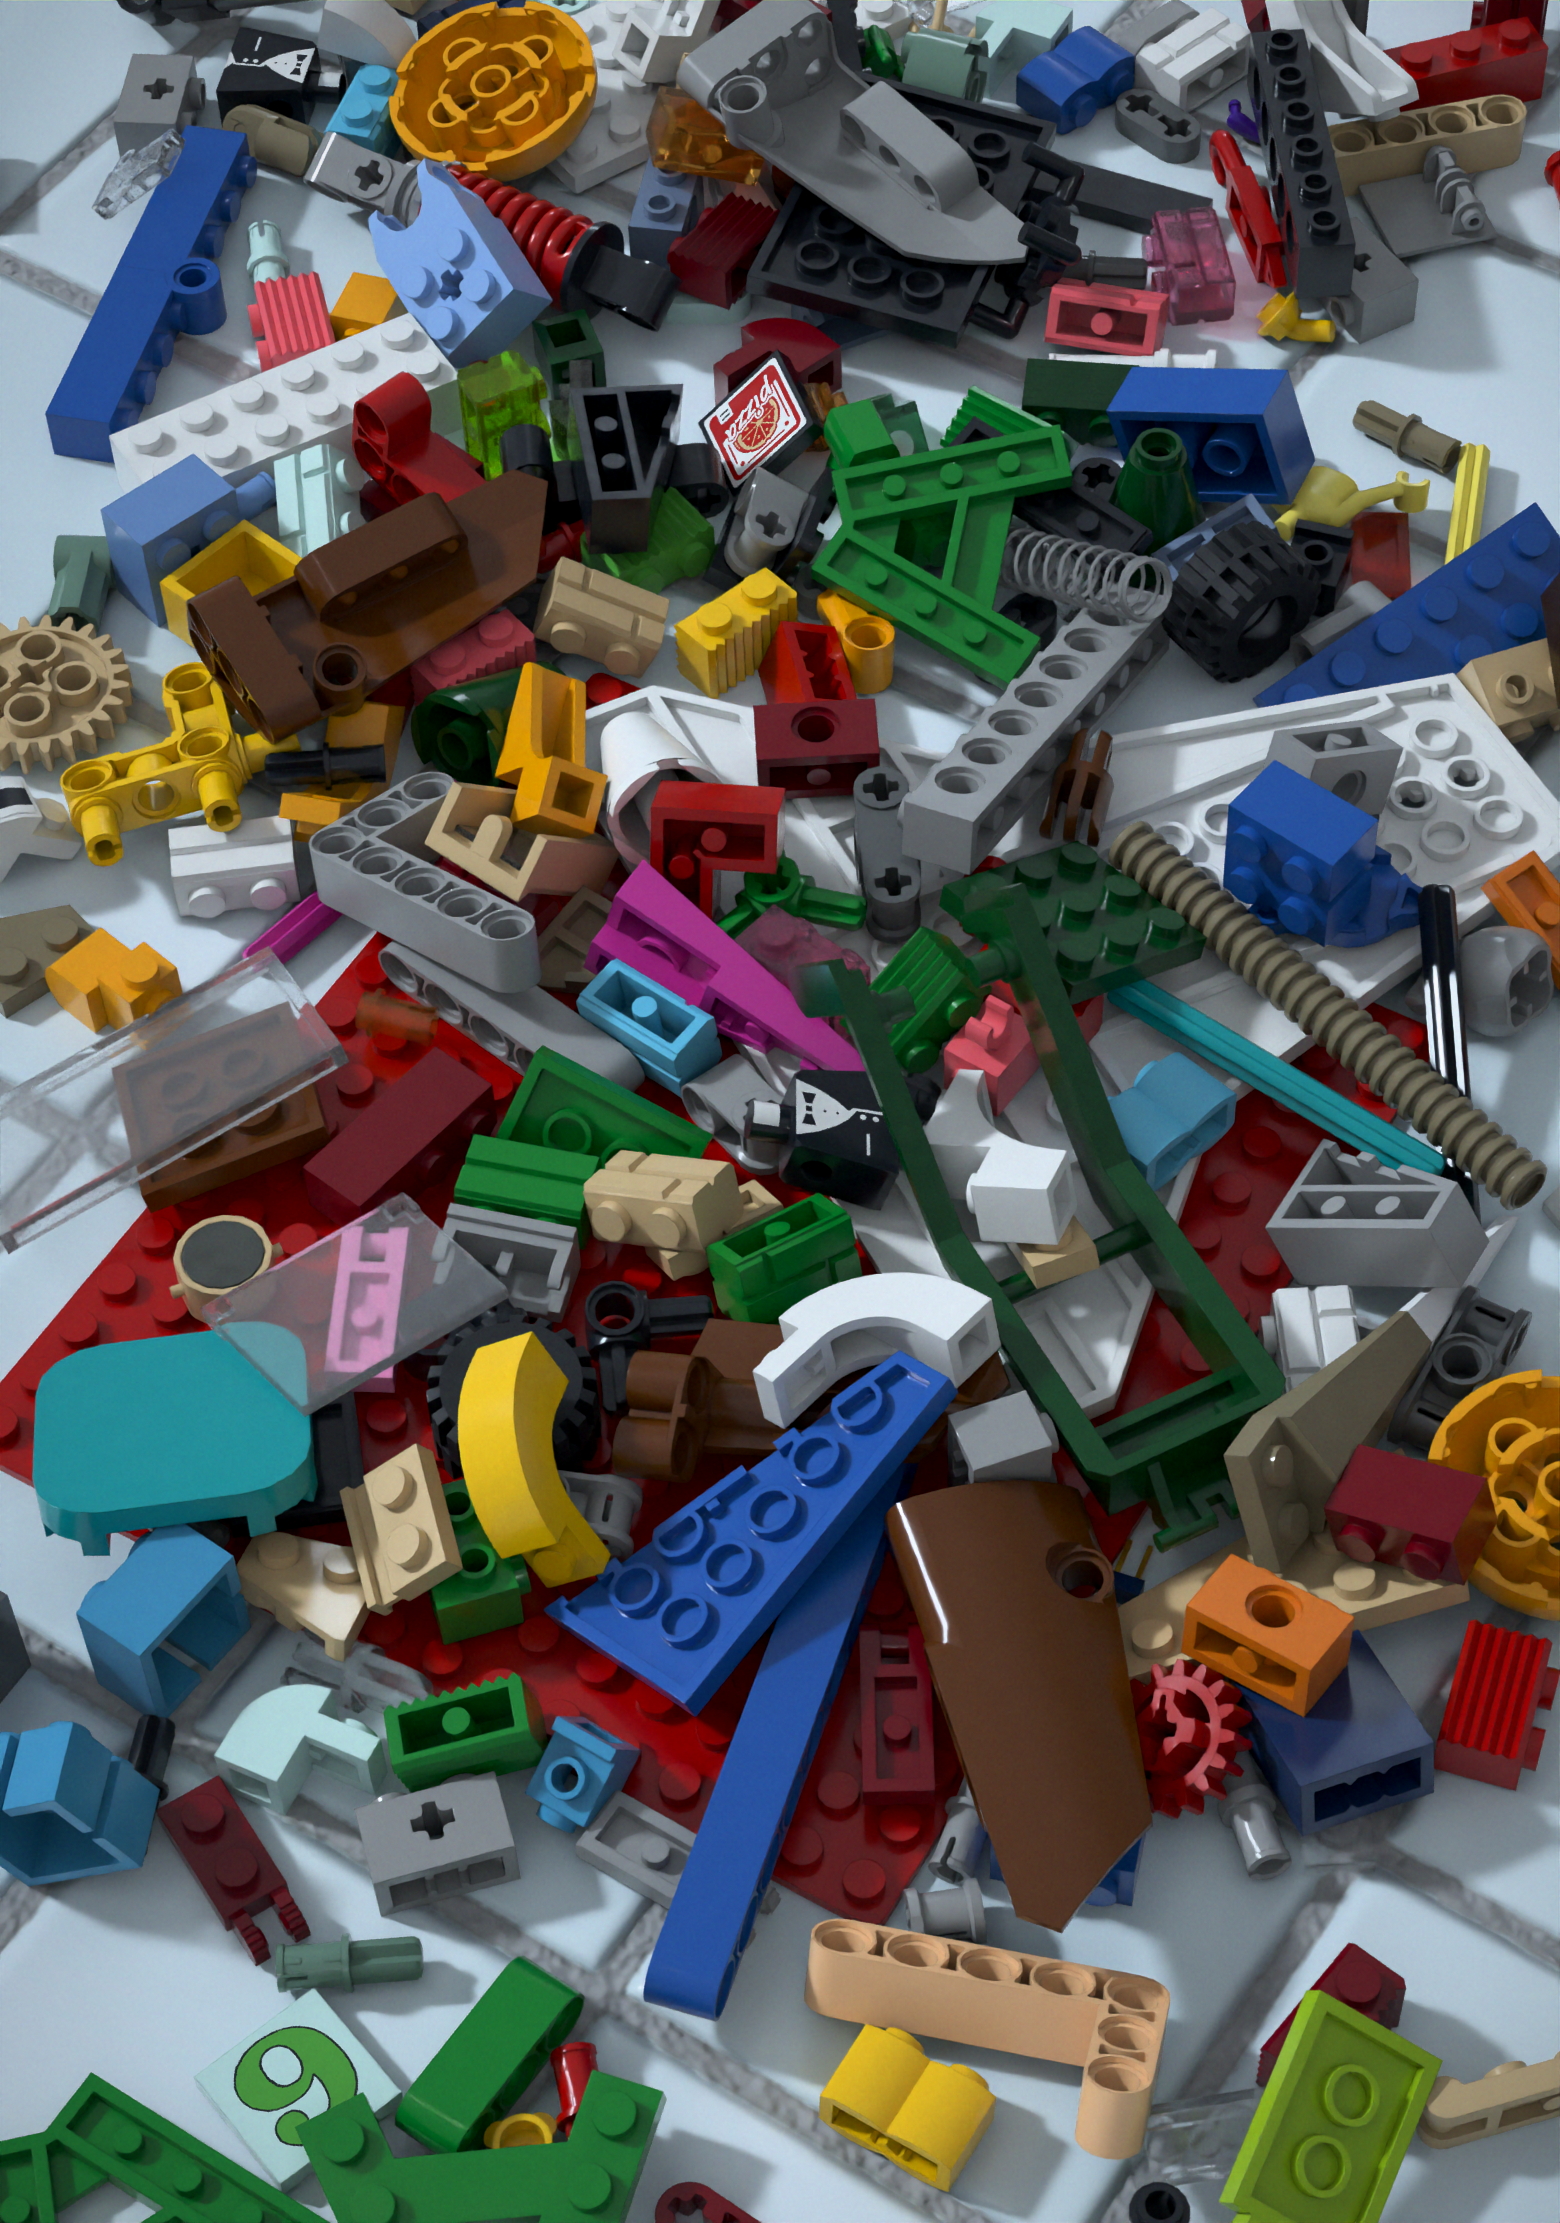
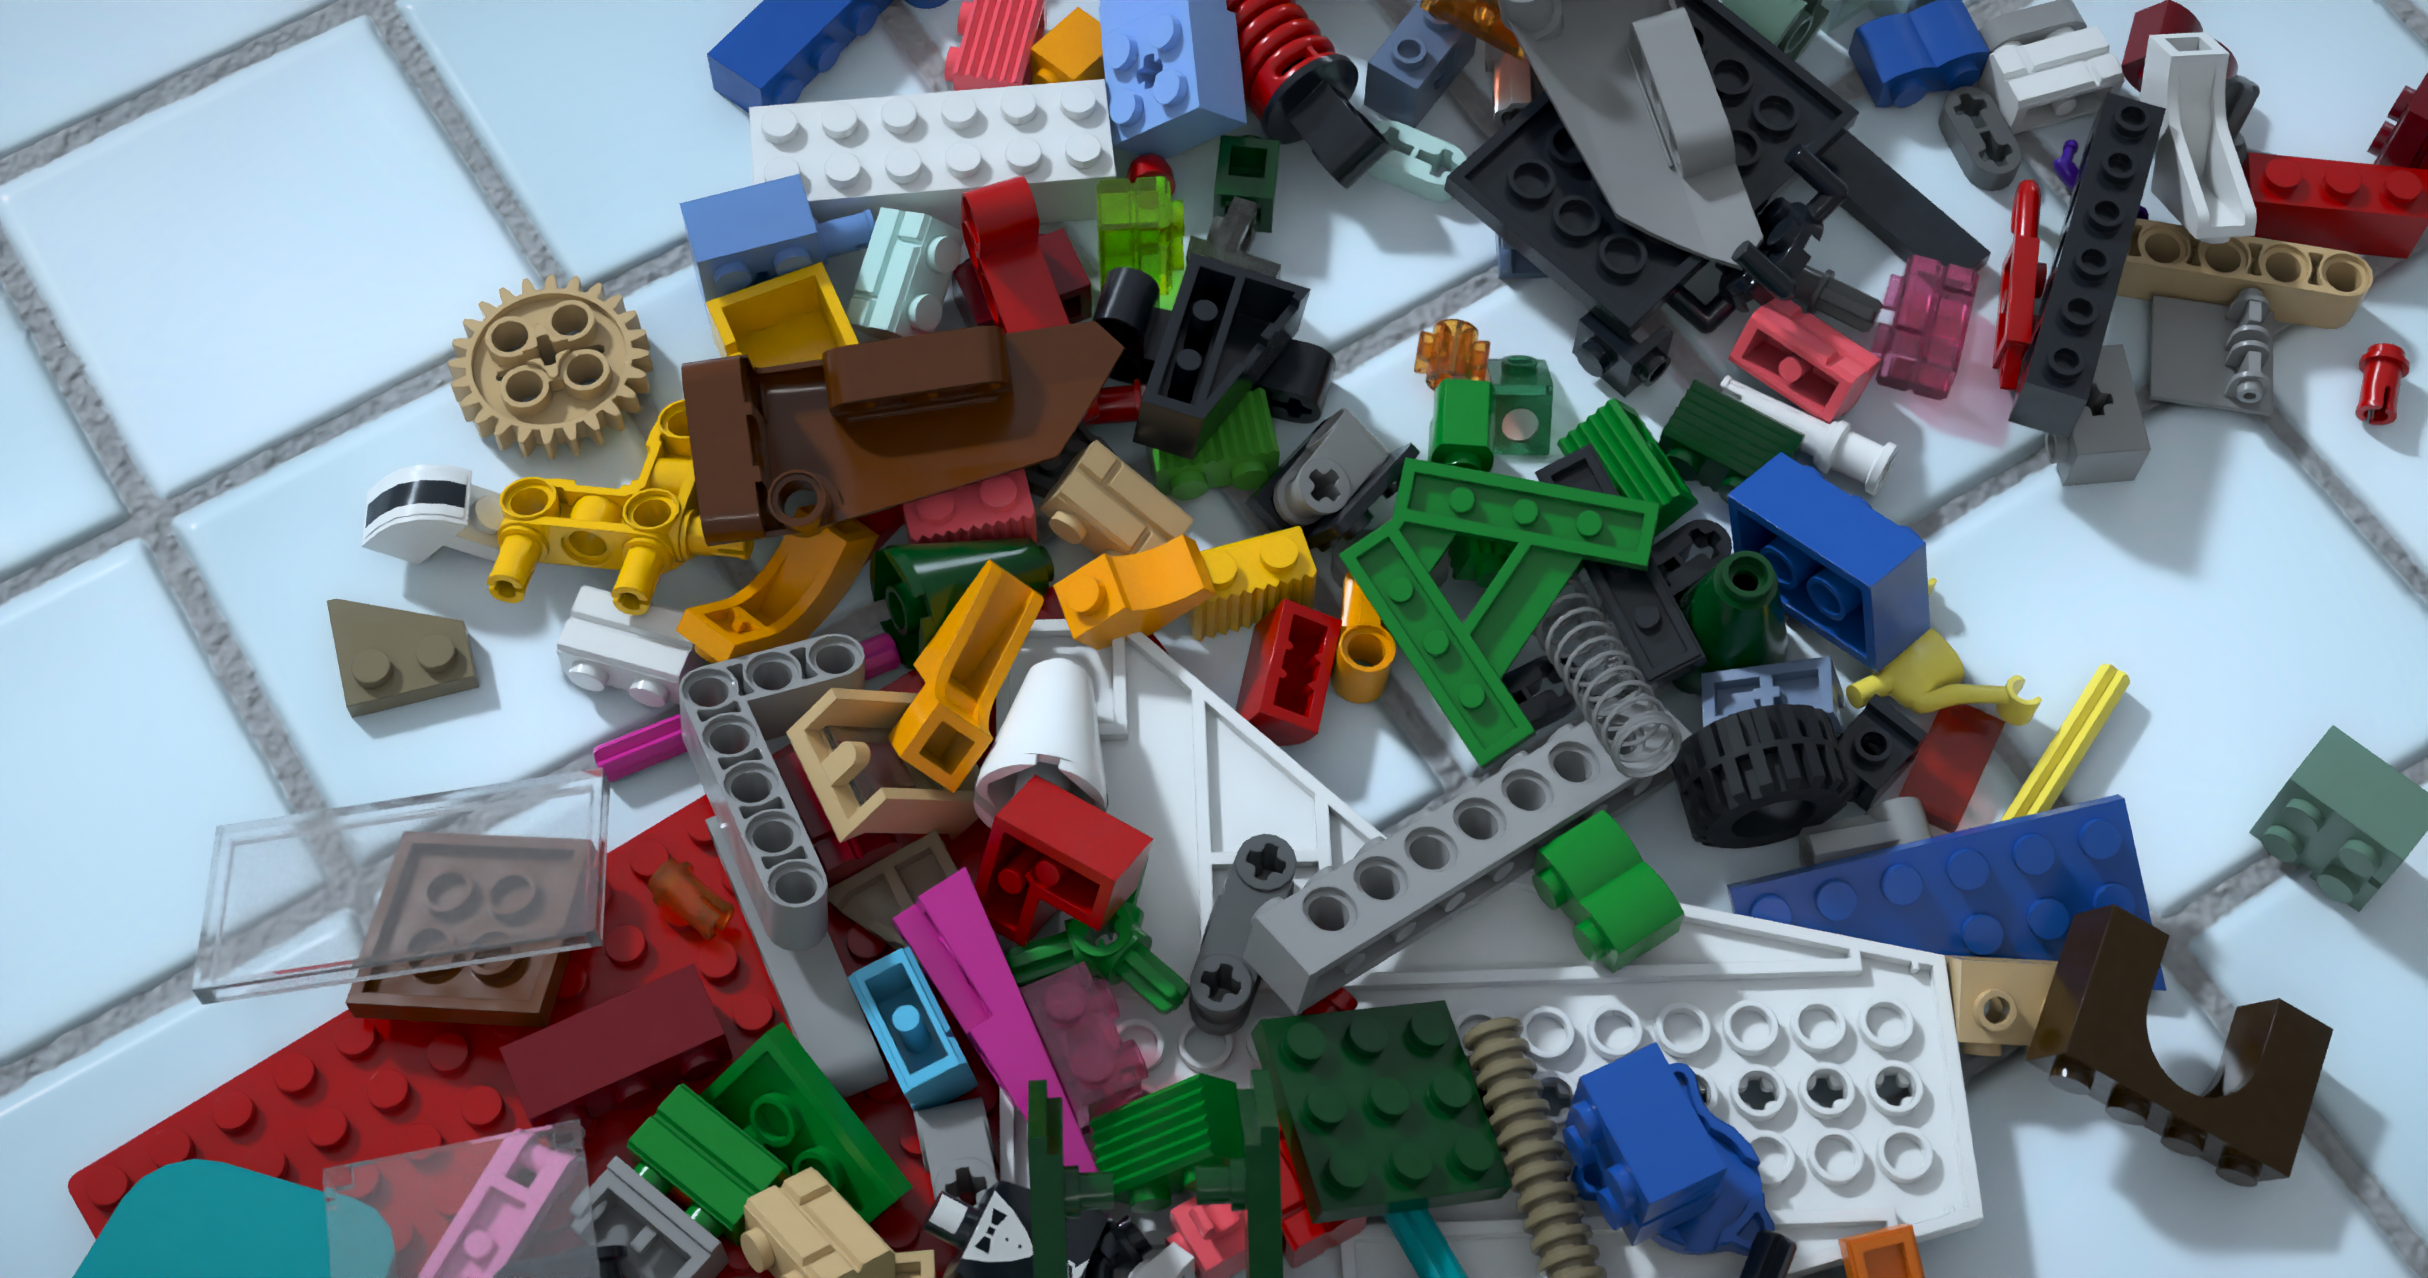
camera: 20 degrees right, 10 degrees up
(75, 975) = (442, 720): light orange piece -> none
(81, 580) = (652, 258): sand green piece -> none
(137, 985) = (470, 753): light orange brick -> none
(219, 1258) = (383, 1114): pearl dark grey piece -> none
(327, 766) = (759, 582): black axle -> none
(654, 657) = (1133, 592): none -> light orange arch
(721, 250) = (1448, 124): dark red brick -> none
(762, 422) = (1389, 348): tile -> none
(810, 351) = (1450, 267): dark red brick -> none
(815, 746) = (1252, 804): dark red brick -> none
(951, 371) = (1621, 361): none -> black bracket
(1081, 787) = (1478, 940): reddish brown arm -> none
(1166, 717) = (1606, 891): none -> green brick
(1281, 319) = (1991, 430): yellow plate -> none
(1342, 758) = (1736, 1046): light grey brick -> none
(1407, 435) = (2052, 625): dark tan axle -> none

